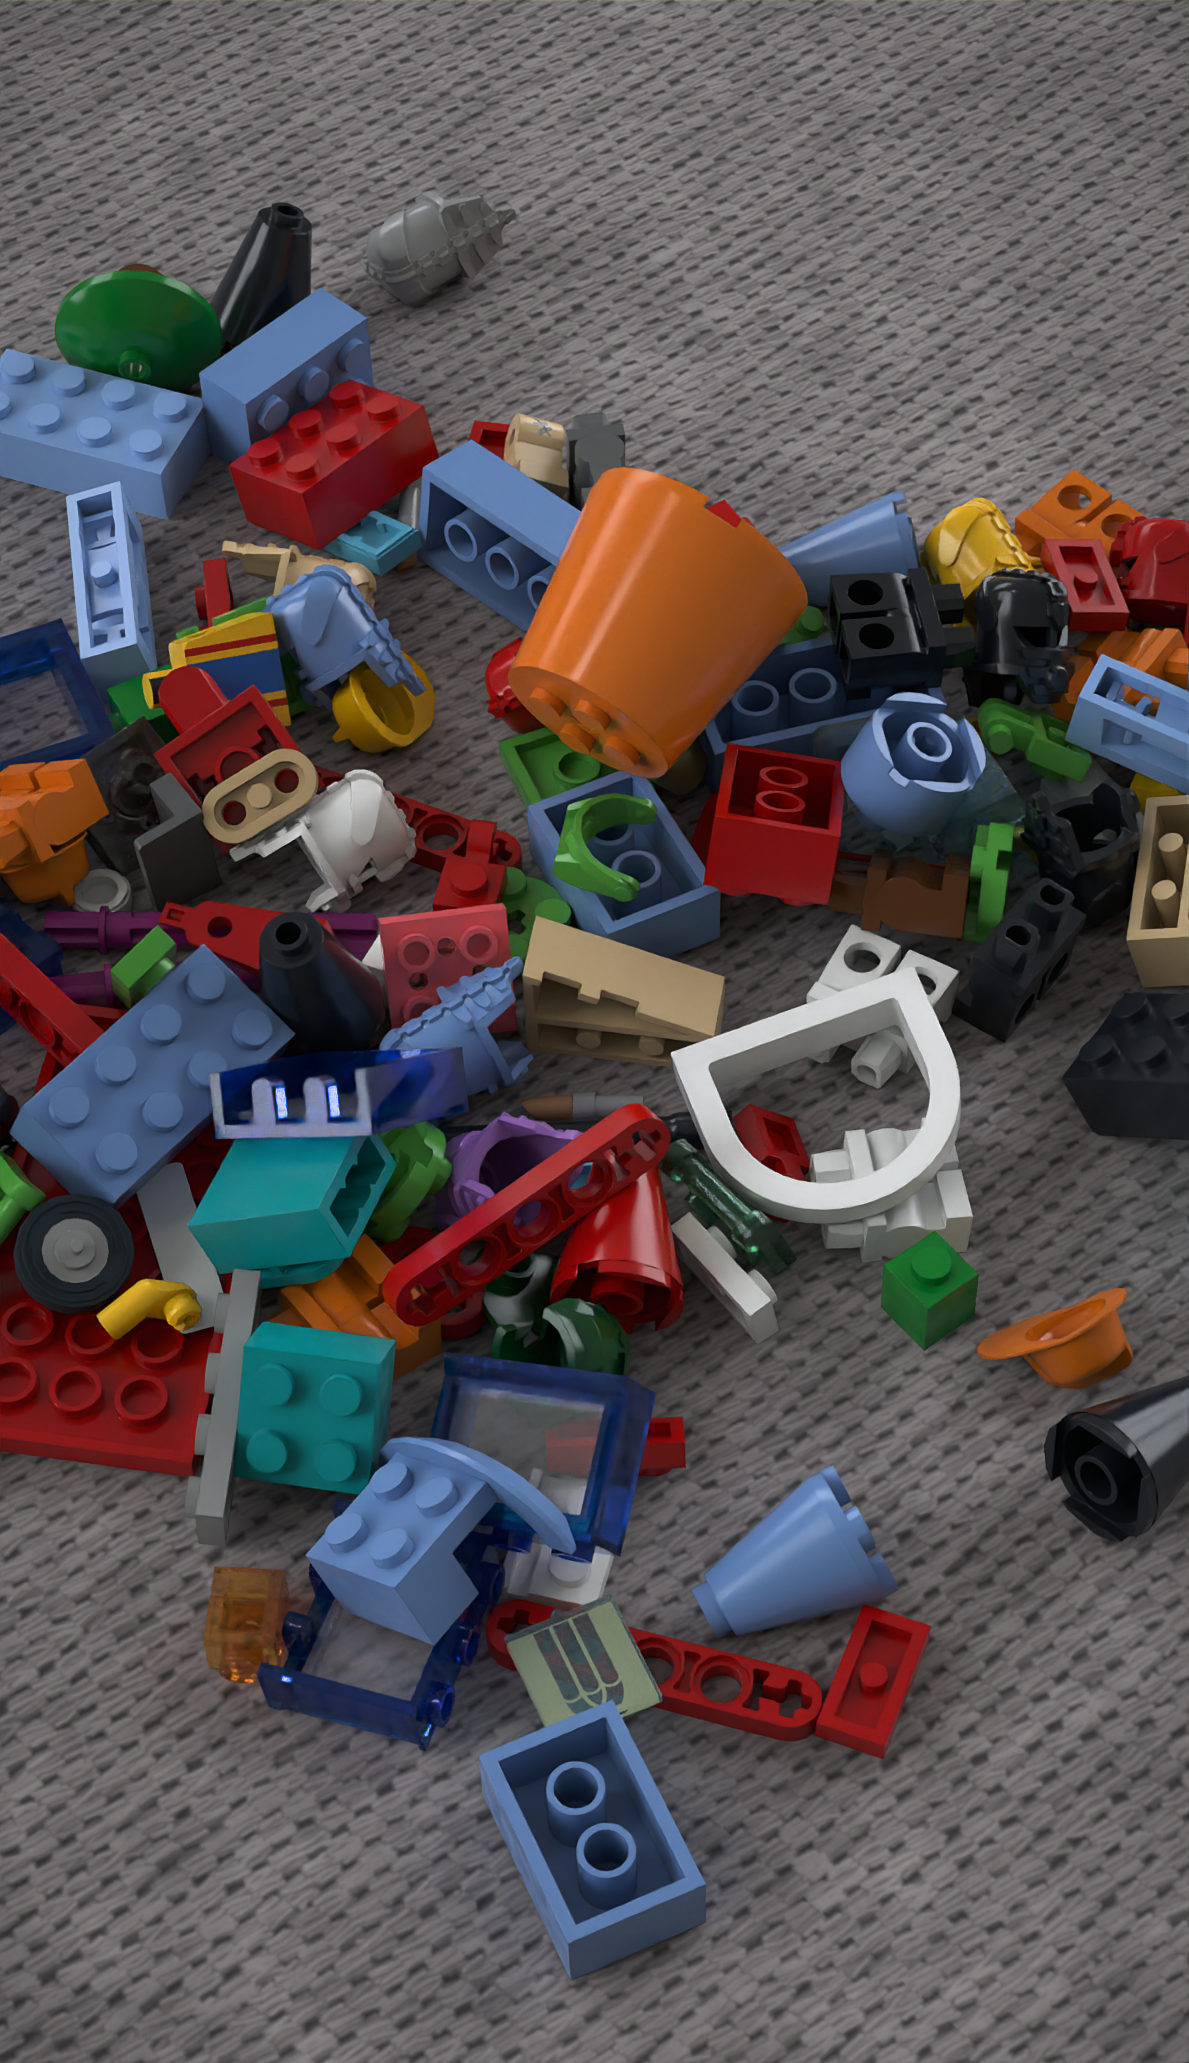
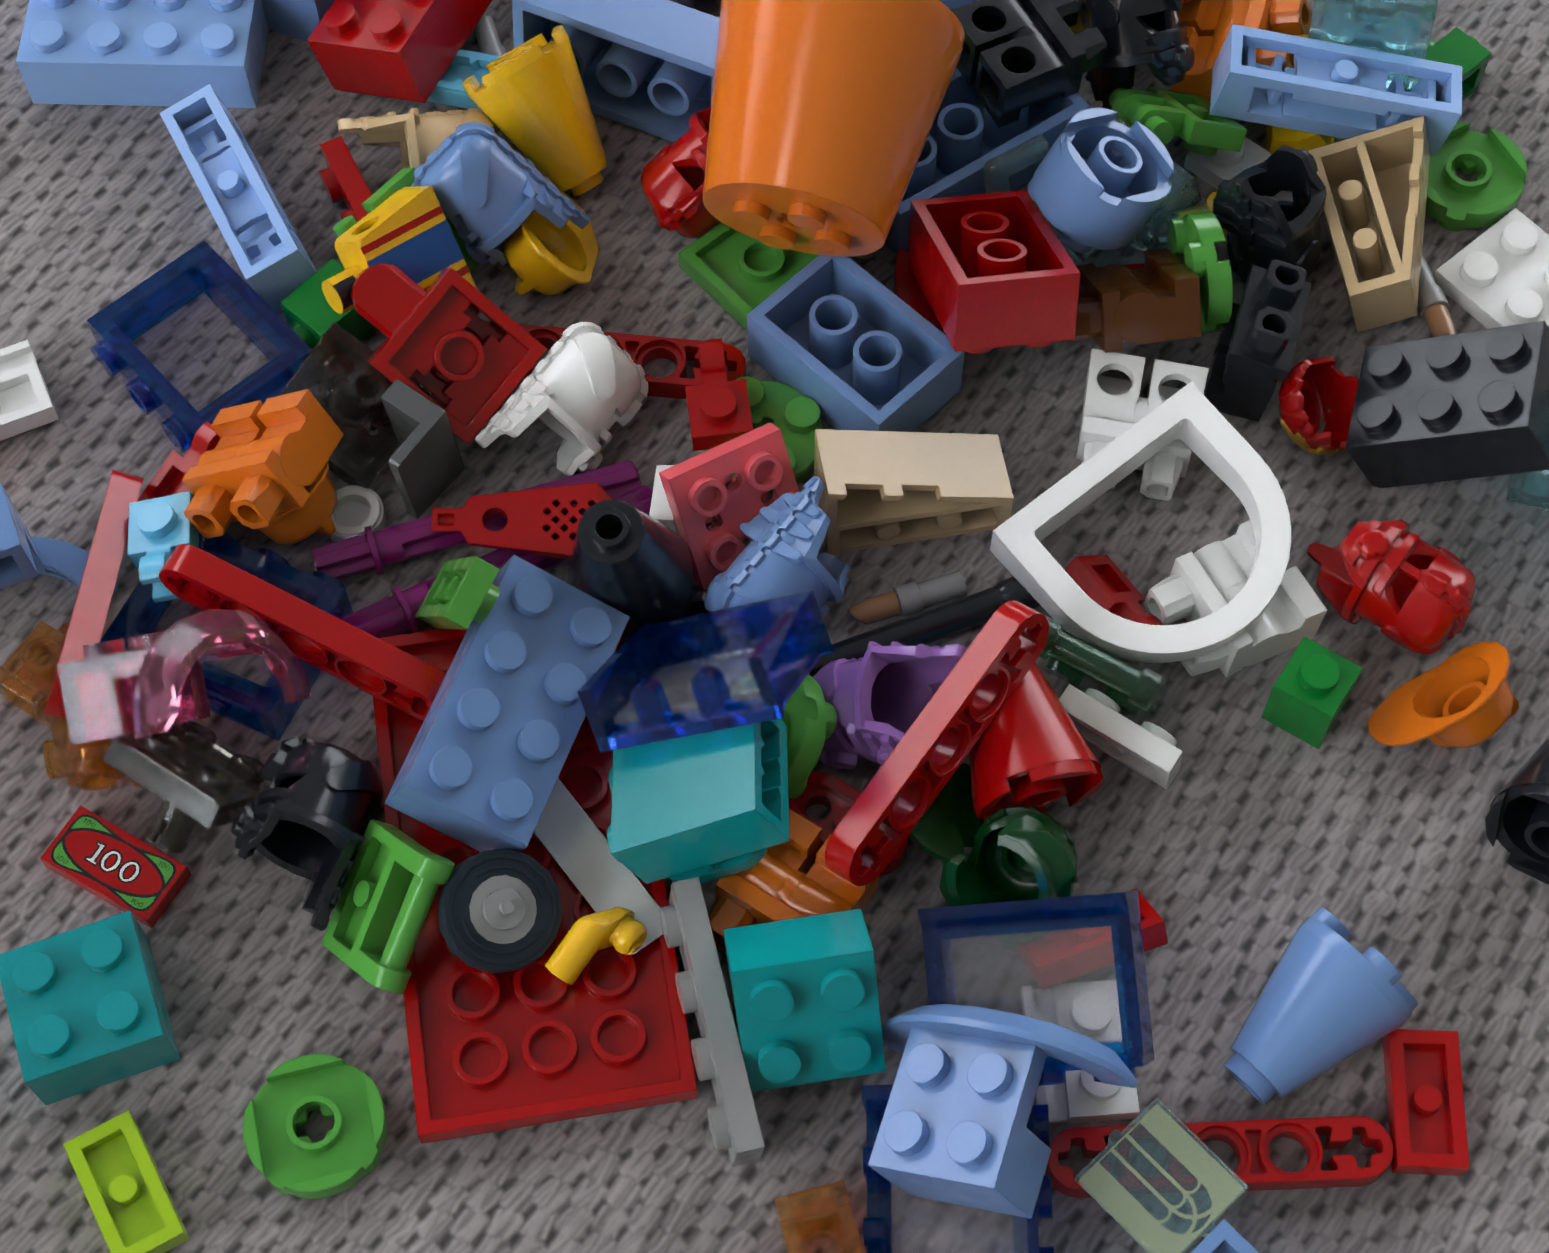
camera: 20 degrees left, 10 degrees up
(258, 792) = (493, 379): tan plate -> none
(420, 580) = (544, 110): none -> yellow cone
(584, 820) = (819, 357): bright green helmet -> none
(1052, 1027) = (1316, 393): none -> red hair
(1060, 1216) = (1396, 583): none -> red helmet

